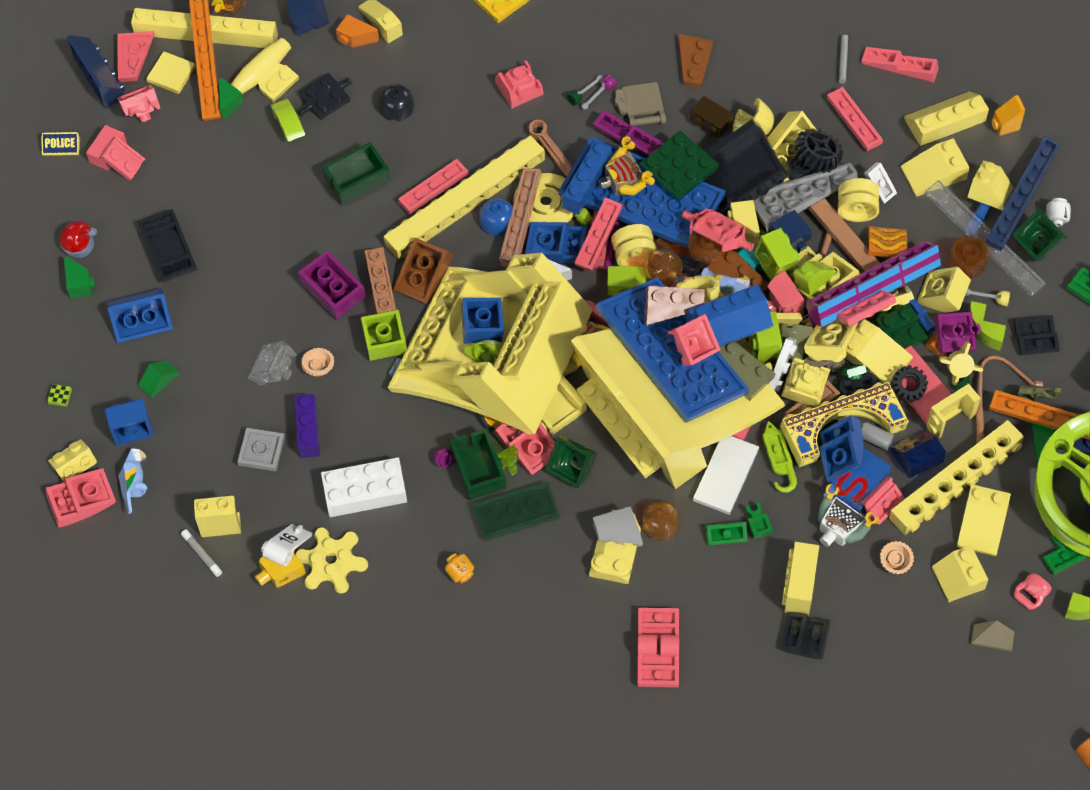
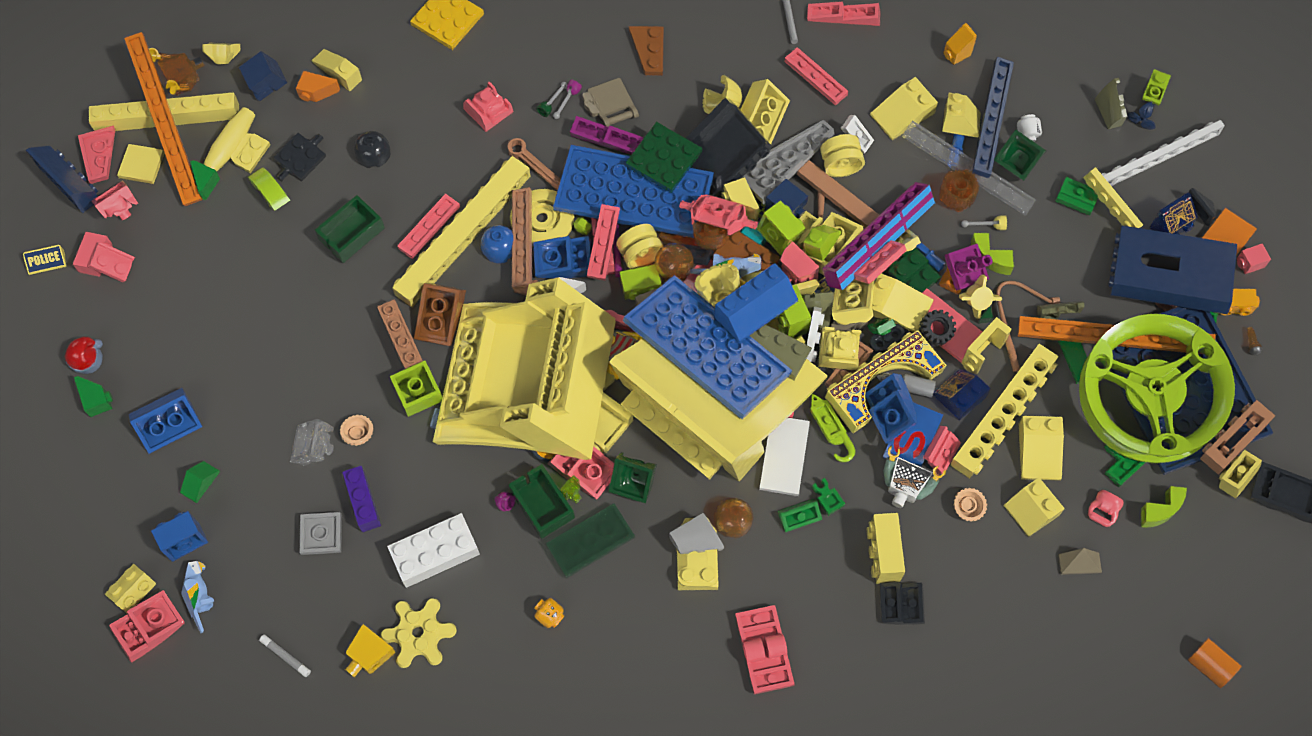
camera: 15 degrees left, 5 degrees up
(59, 395) = (101, 521): lime tile -> none
(167, 245) = (177, 342): black slope -> none
(217, 516) = (292, 616): light yellow panel -> none
(282, 546) = (368, 629): white door -> none
(332, 284) = (352, 348): magenta brick -> none
(482, 319) = (512, 355): blue brick -> none
(484, 351) = (523, 387): lime hat -> none
(586, 177) = (578, 187): blue brick -> none
(623, 172) = (613, 176): torso -> none
(670, 302) = (696, 300): wing -> none
(695, 340) = (731, 335): coral brick -> none
(711, 117) = (680, 102): dark brown piece -> none
(796, 170) = (779, 132): black plate -> none
(818, 150) = (791, 114): black gear -> none
(886, 241) = (877, 190): slope -> none
(944, 289) = (944, 226): light yellow slope -> none
(947, 117) = (901, 57): light yellow slope -> none
(1036, 335) = (1040, 252): black slope -> none

